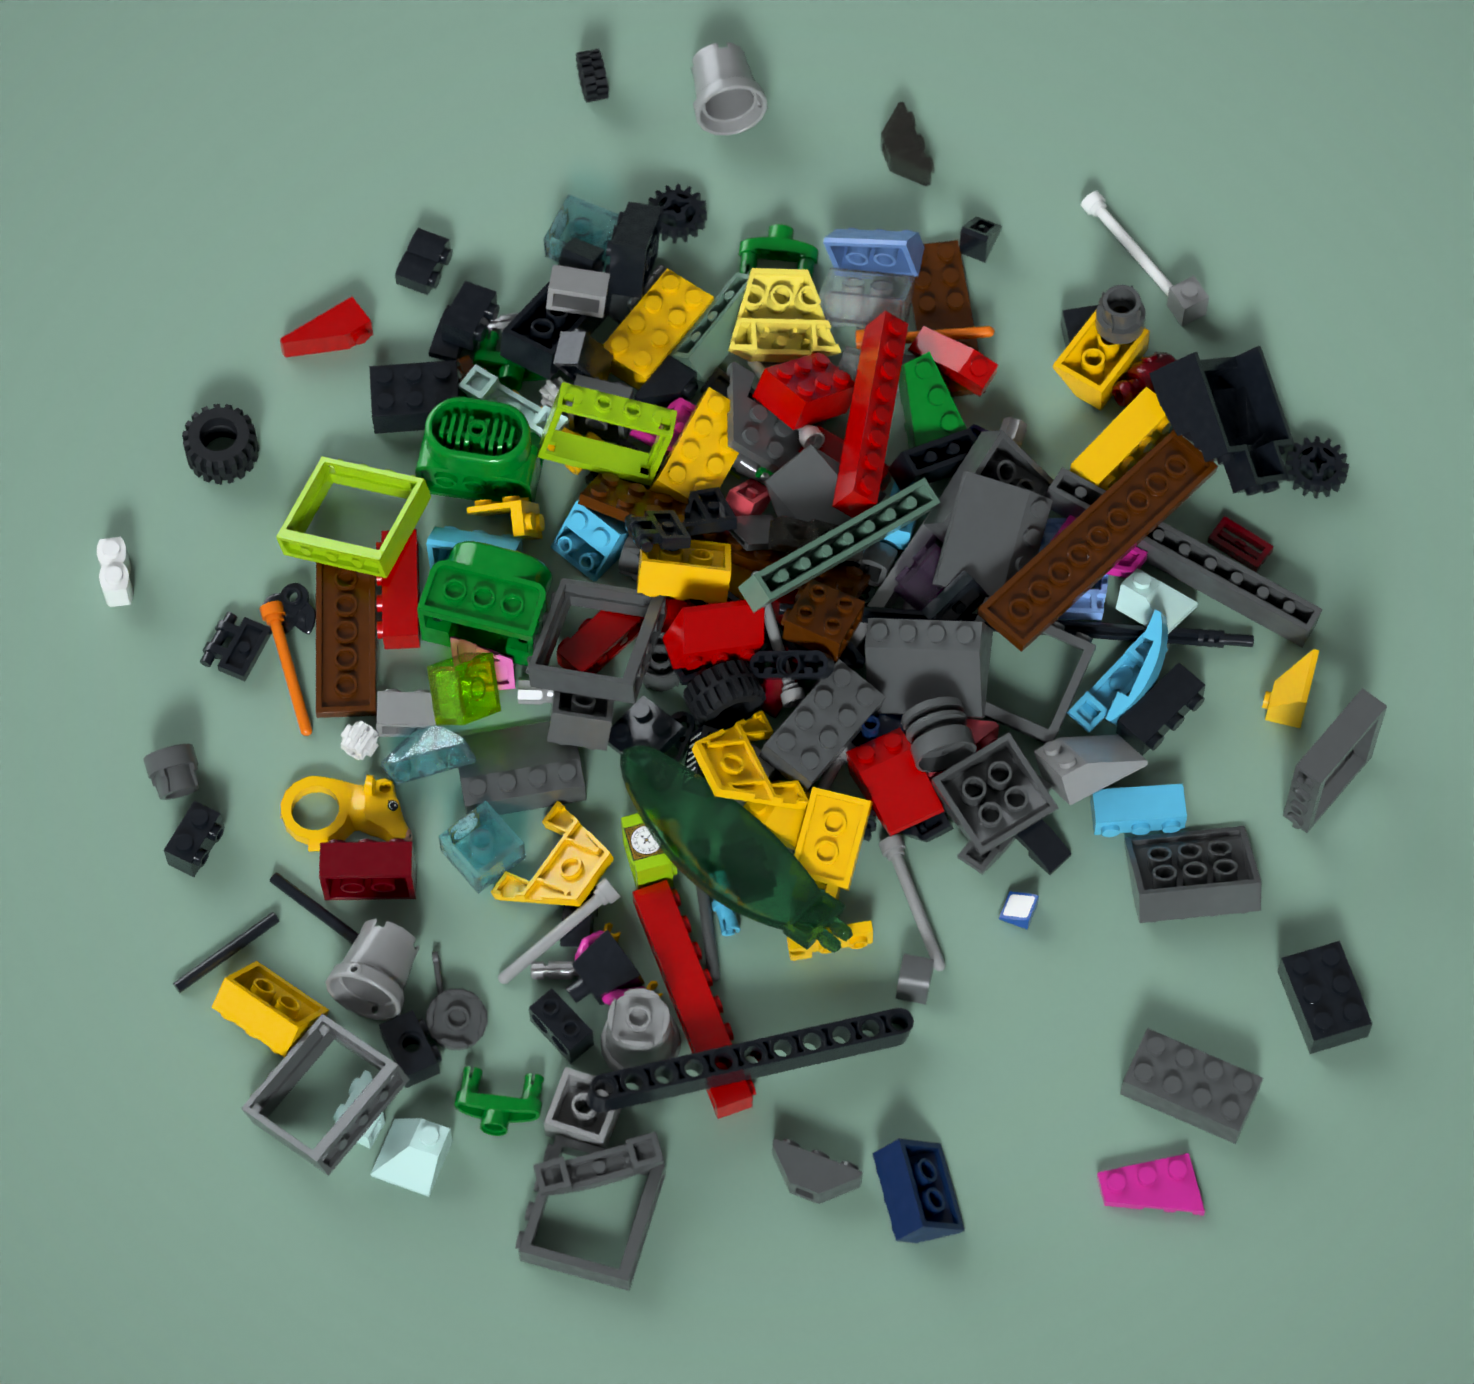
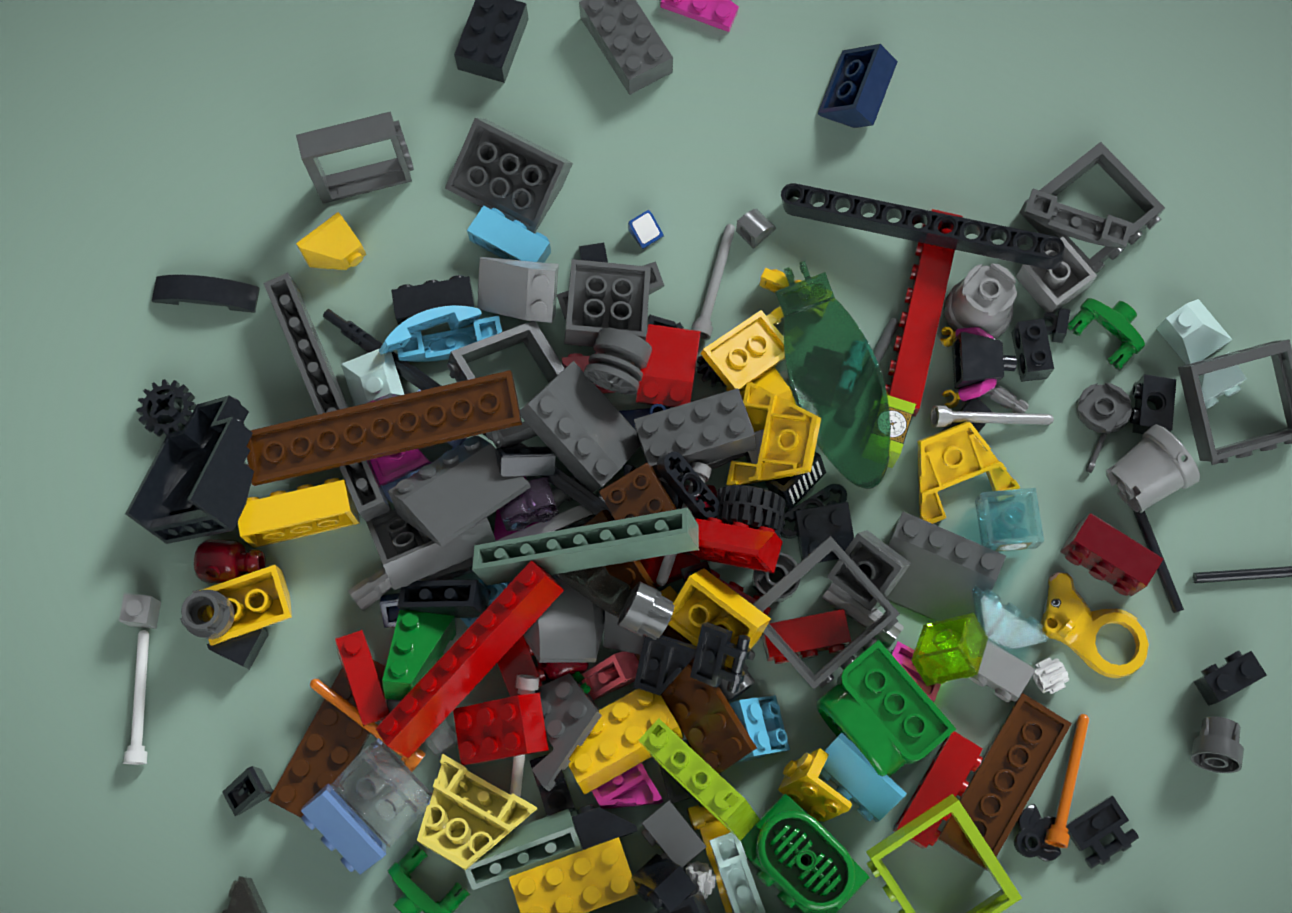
camera: 145 degrees left, 10 degrees up
(267, 1007) = (1241, 504): yellow slope -> none
(549, 1068) = (1059, 324): none -> black tile
(747, 526) = (646, 611): none -> dark grey piece
(813, 1173) = (920, 140): dark grey slope -> none
(1235, 553) = (266, 371): dark red tile -> none
(1376, 584) = (205, 290): none -> black slope

